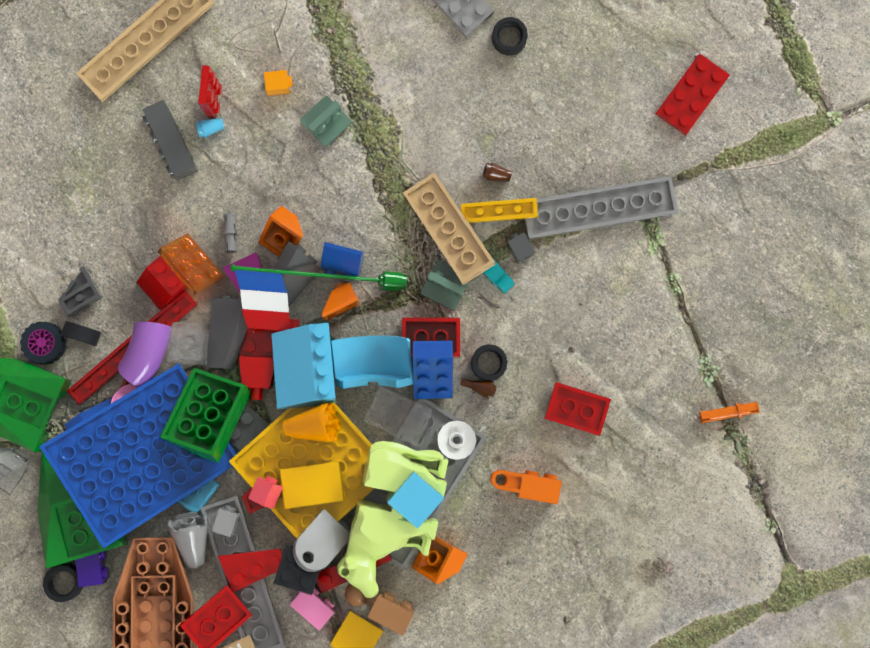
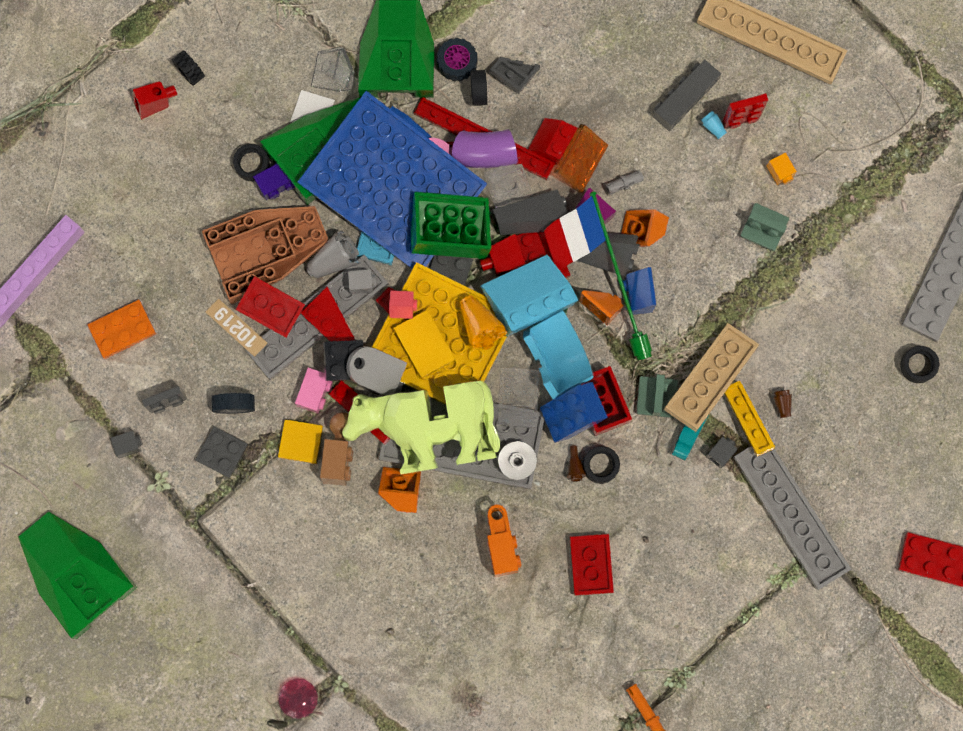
camera: 70 degrees right, 5 degrees down
(27, 502) = (310, 103): none -> white sticker
(415, 499) = (448, 438): medium azure tile -> none

